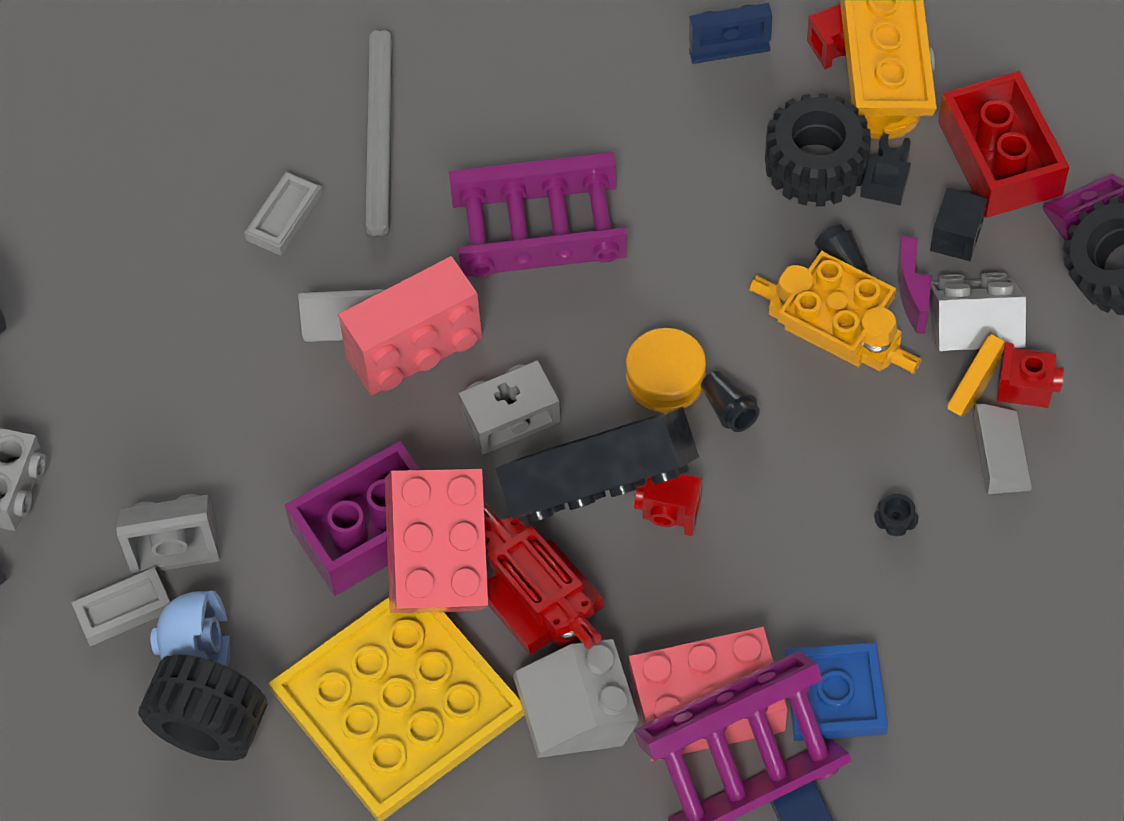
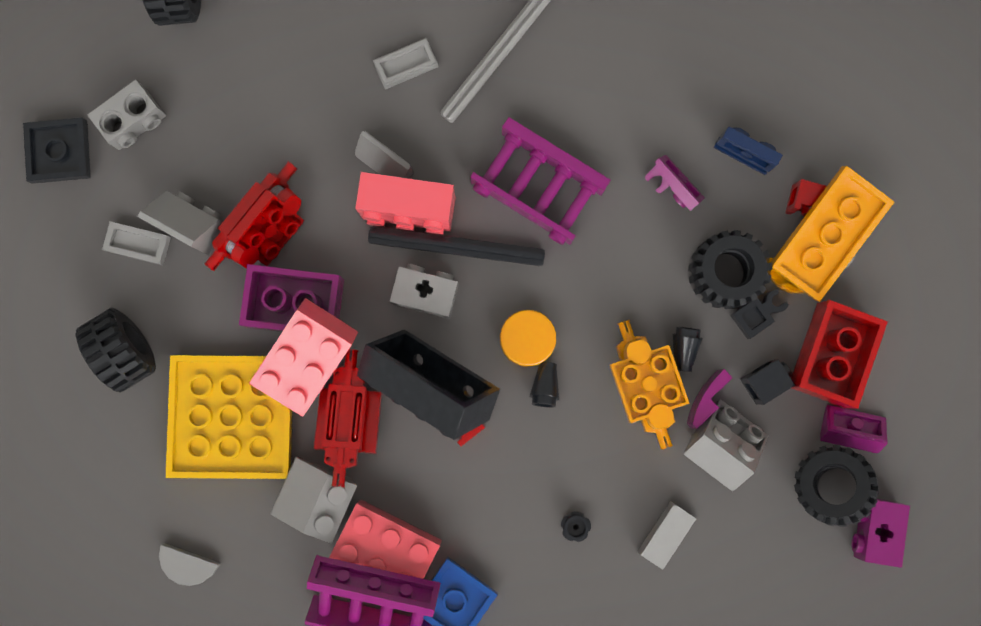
camera: 35 degrees right, 25 degrees up
(192, 628) = (149, 300): light blue cylinder -> none
(256, 469) = (259, 222): none -> red piece
(501, 342) = (456, 246): none -> black axle
(703, 117) = (684, 191): none -> magenta plate
(977, 376) = (687, 487): light orange tile -> none
(1028, 377) = (712, 499): red brick -> none

